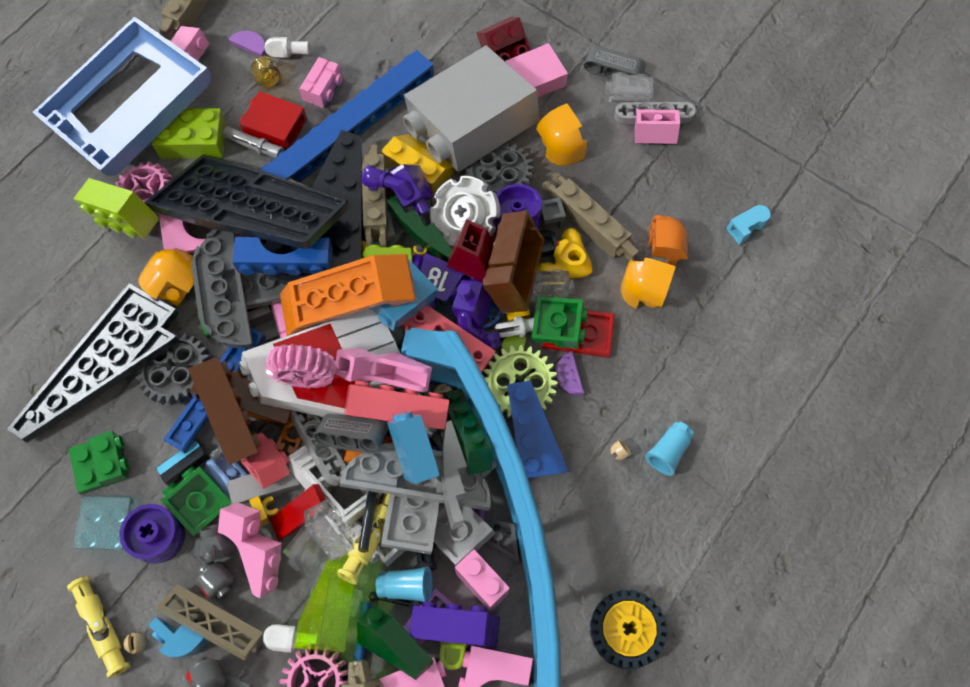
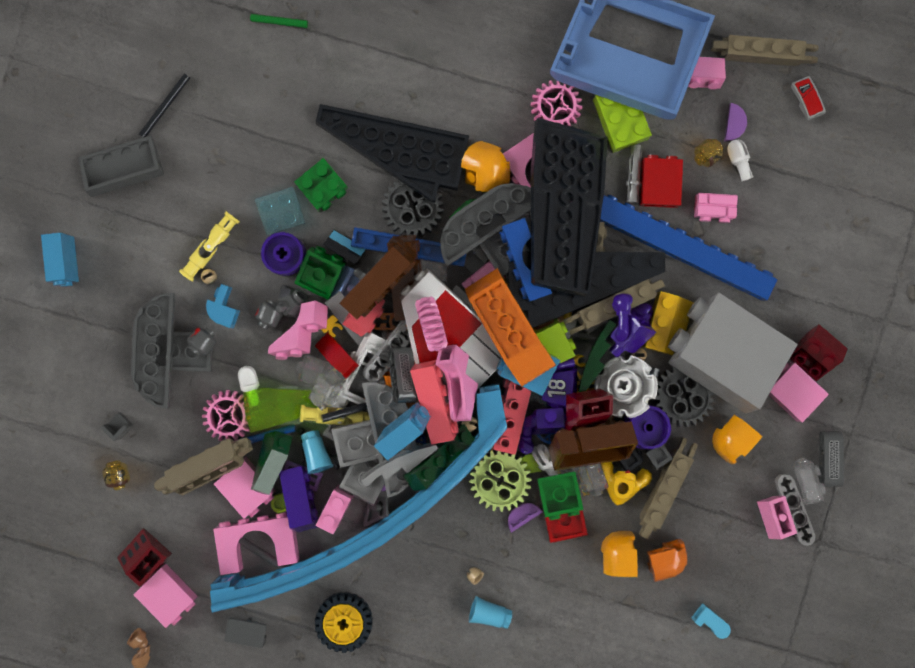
camera: 70 degrees right, 20 degrees up
(116, 208) = (523, 97): lime brick -> none
(211, 617) = (243, 326): dark tan fence -> none
(532, 432) = (462, 504): blue wing -> none

